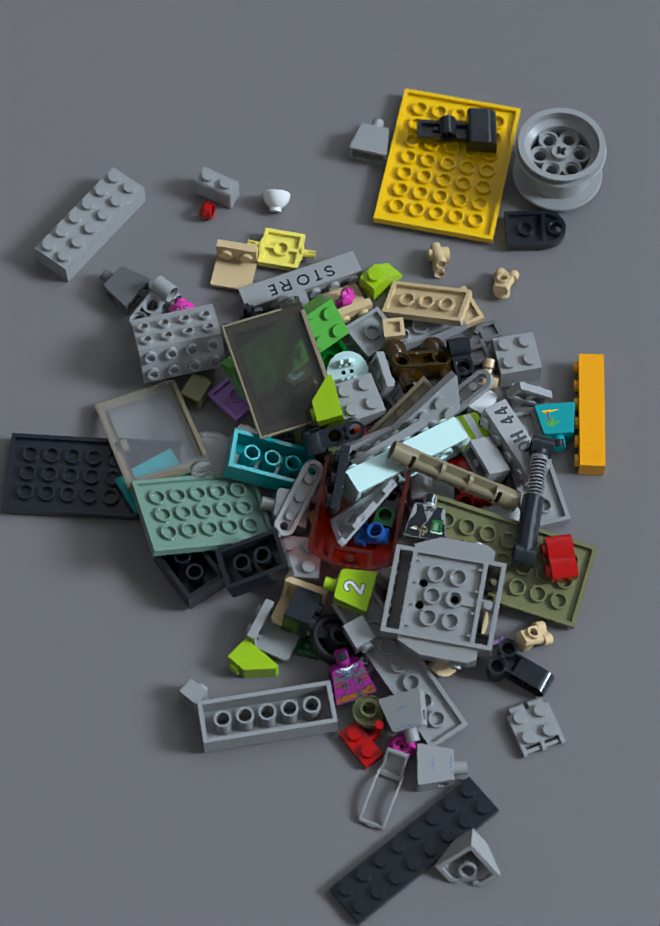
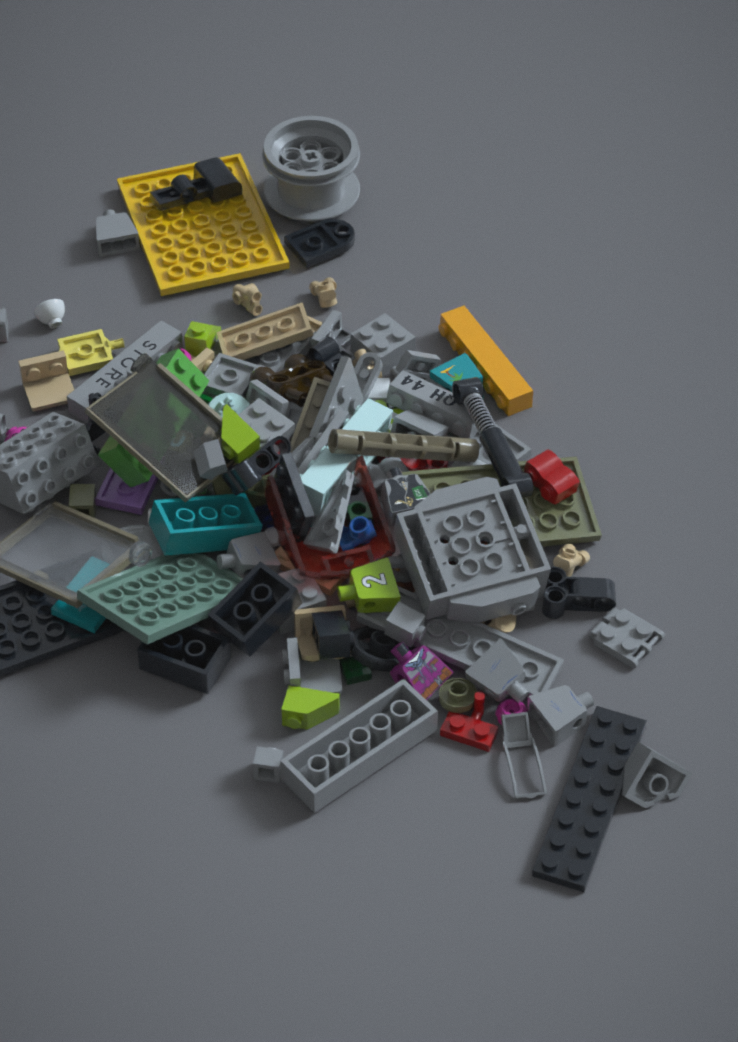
camera: 30 degrees left, 15 degrees down
(295, 415) = (210, 459): none -> light grey piece
(298, 497) = (258, 532): light grey plate -> none
(393, 328) = (250, 360): tan plate -> none
(477, 326) = (330, 328): none -> light grey plate

